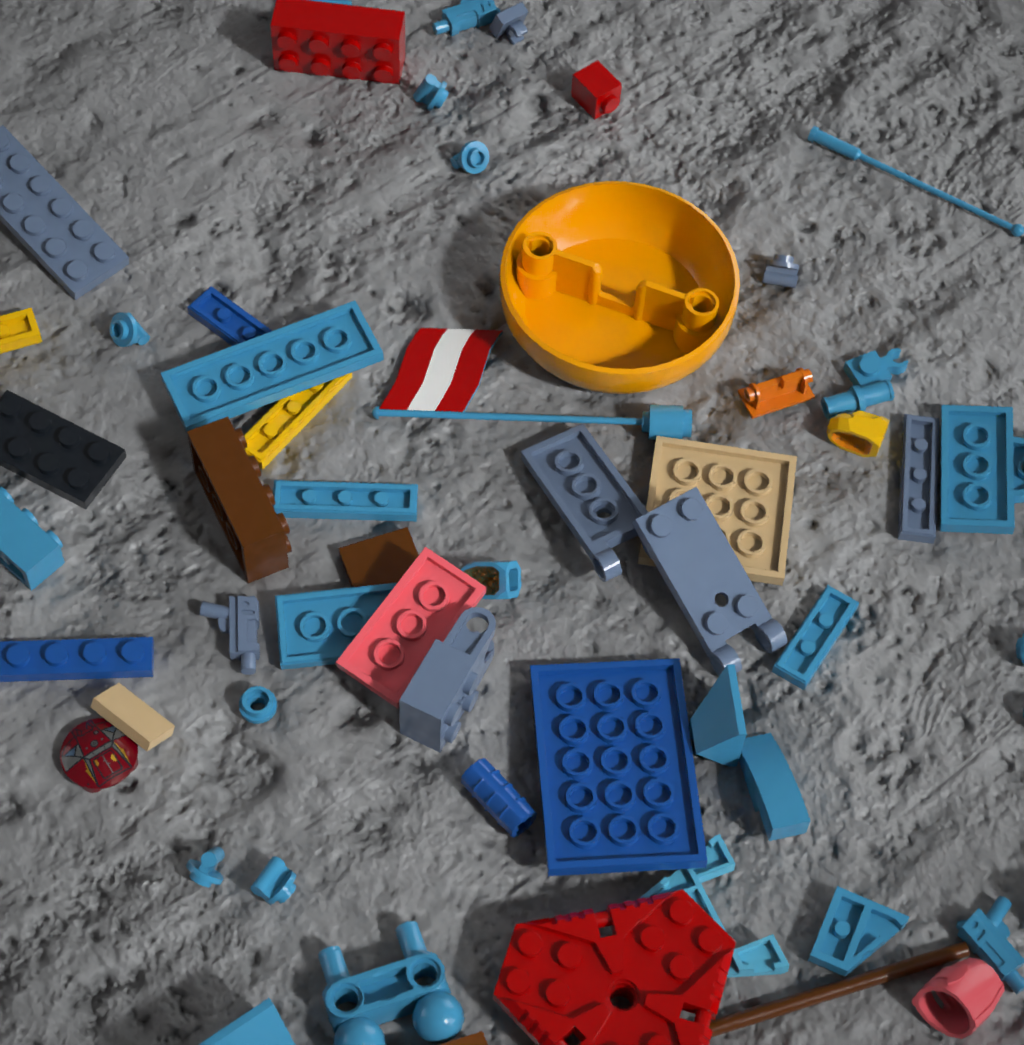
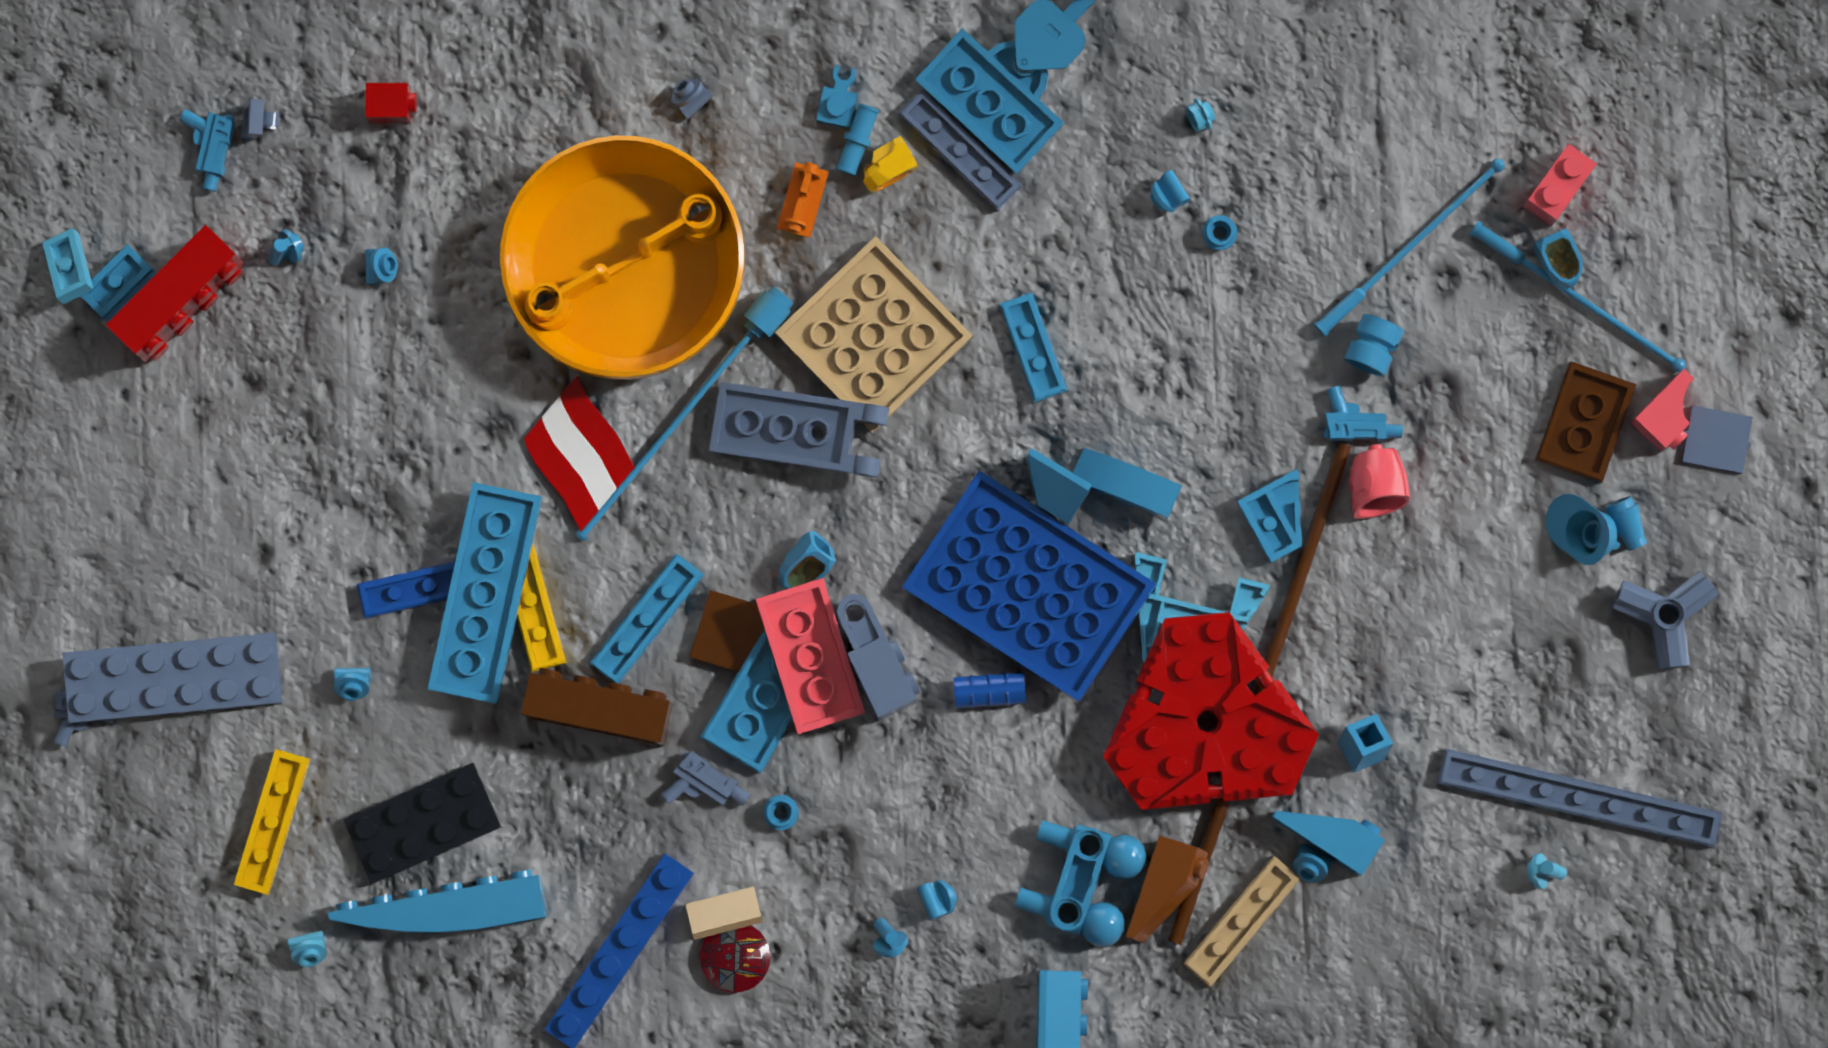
camera: 50 degrees left, 25 degrees up
(696, 567) = (921, 397): sand blue hinge -> none

